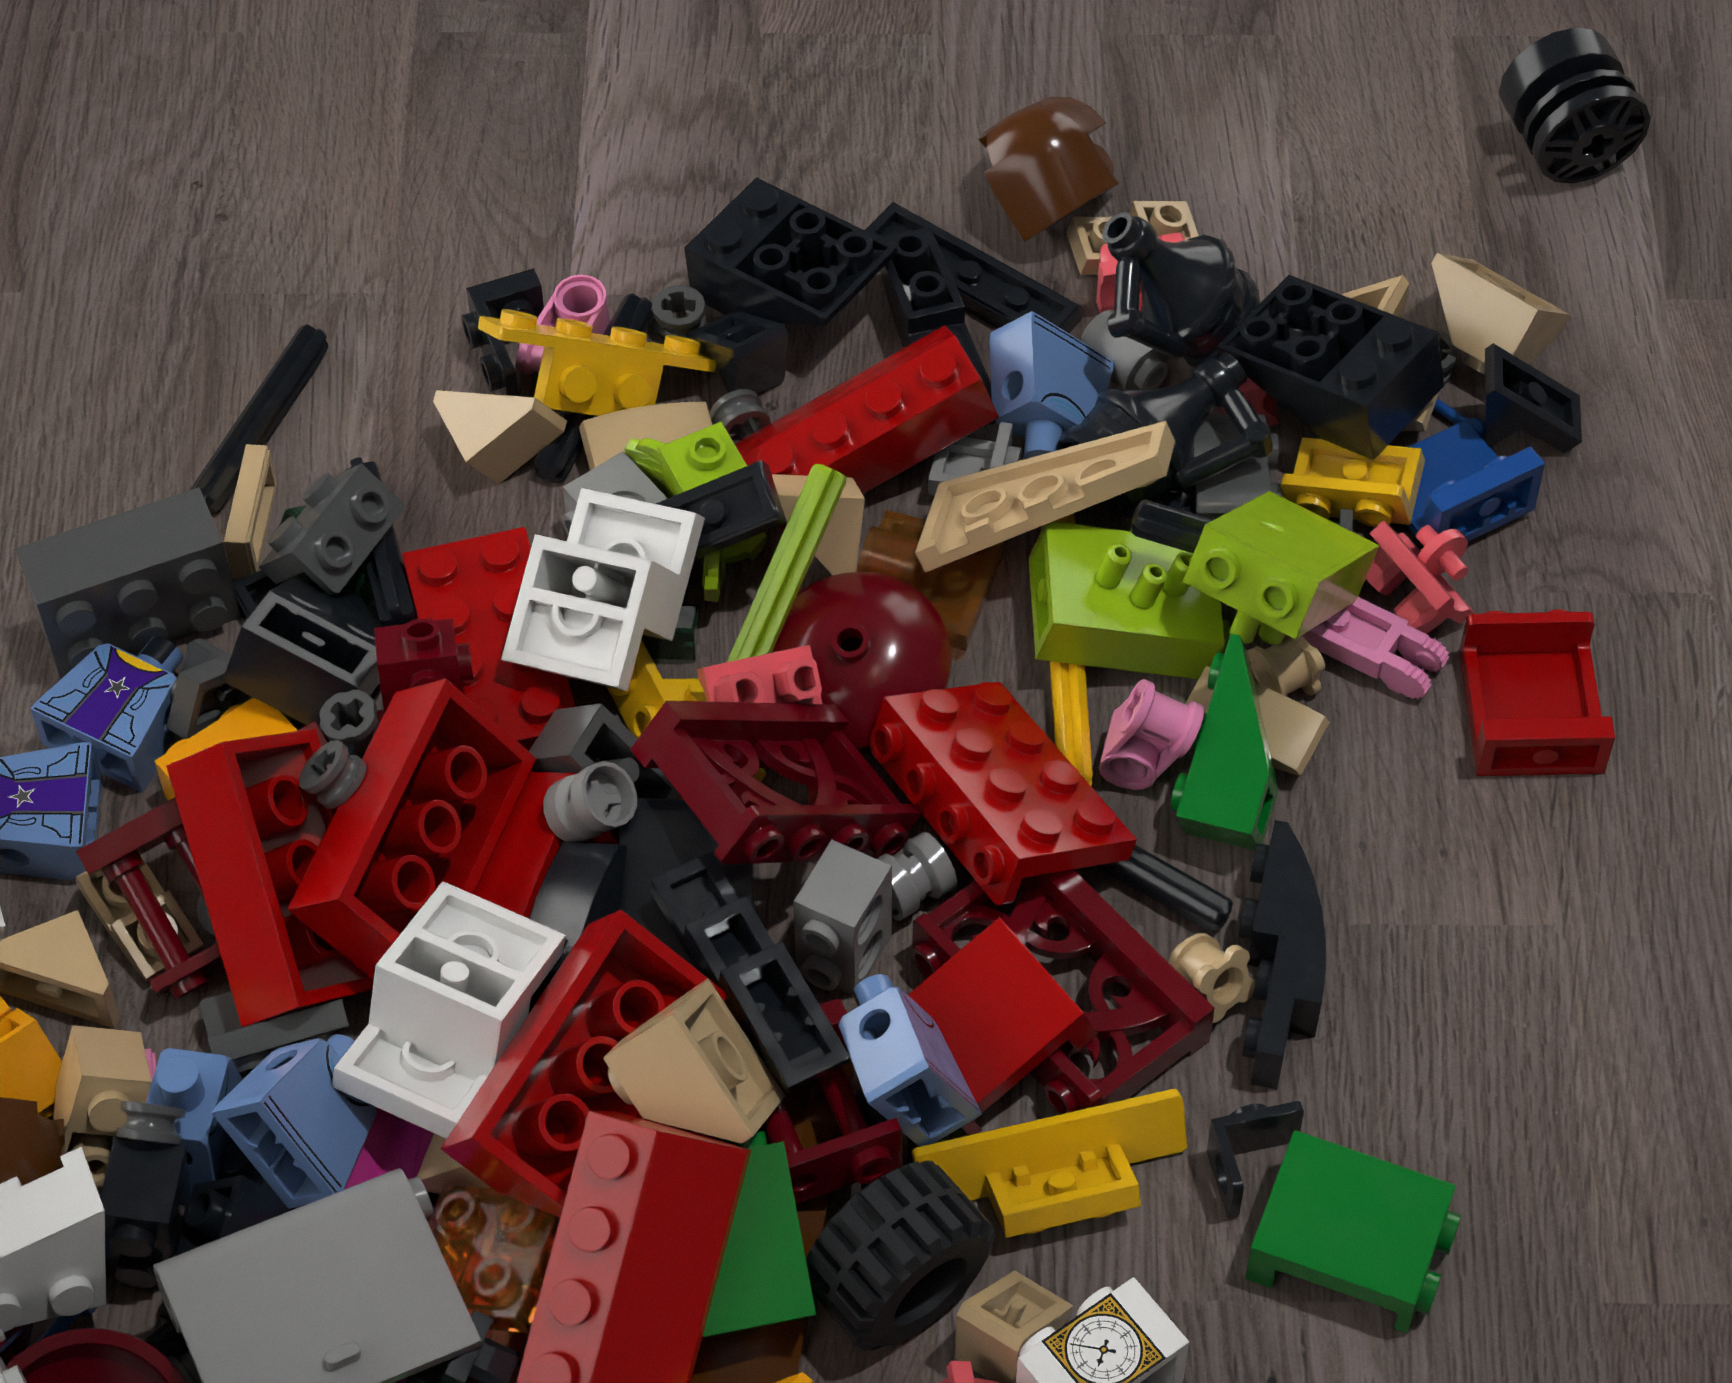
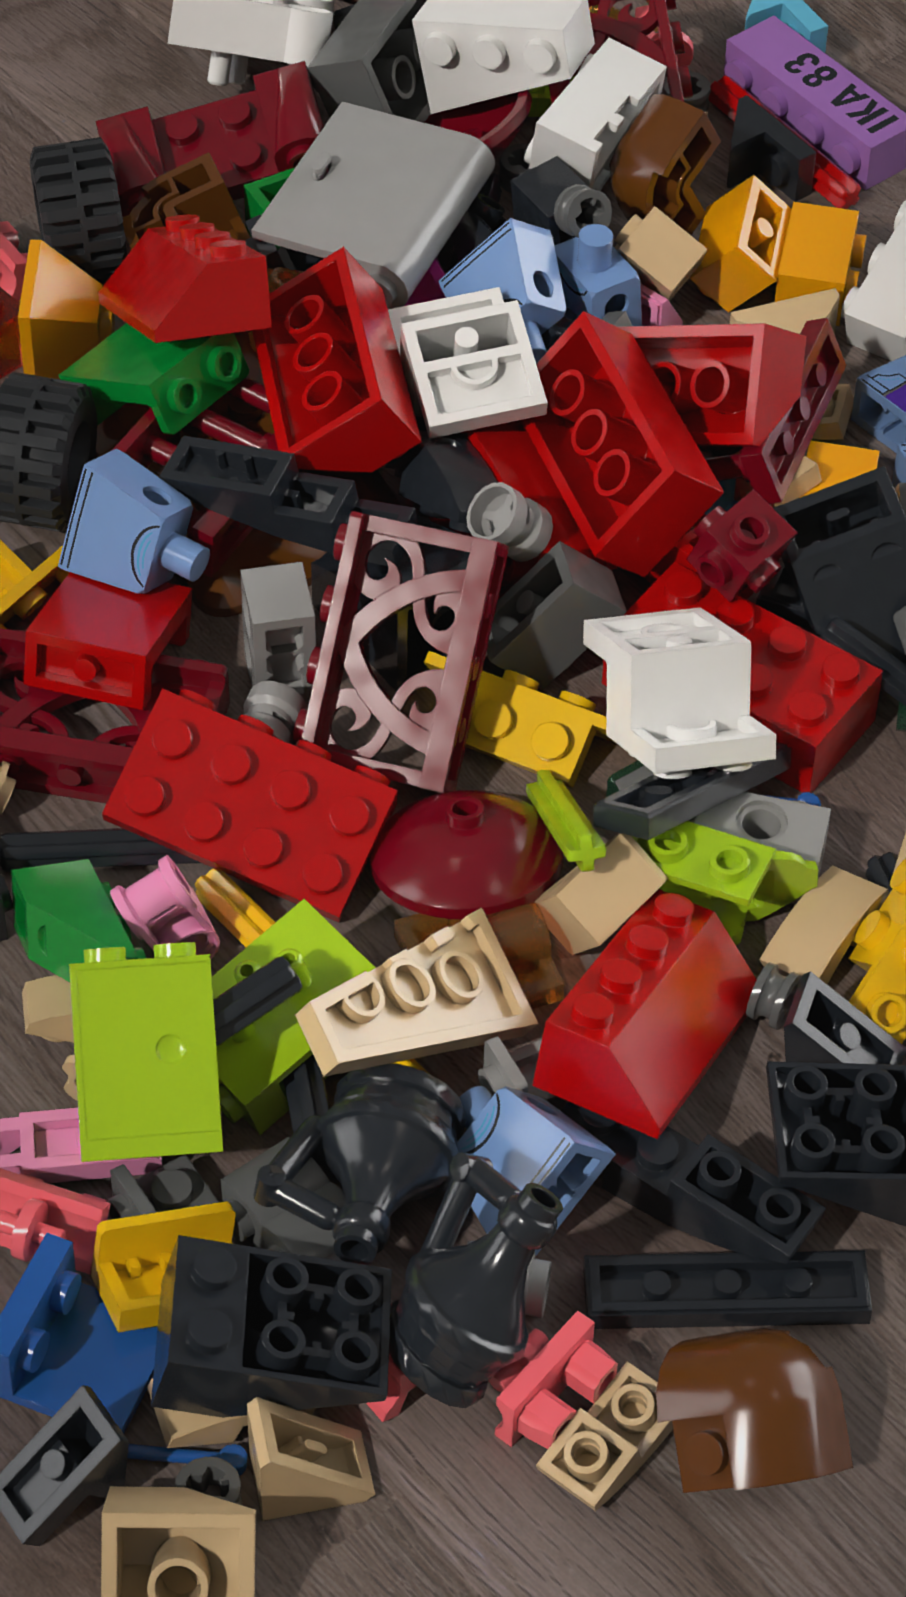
camera: 140 degrees right, 5 degrees down
(332, 774) = (698, 413): dark grey bush -> none
(350, 719) = (755, 476): dark grey bush -> none
(695, 1069) = (245, 383): tan slope -> none
(765, 678) = (504, 741): coral hips -> none

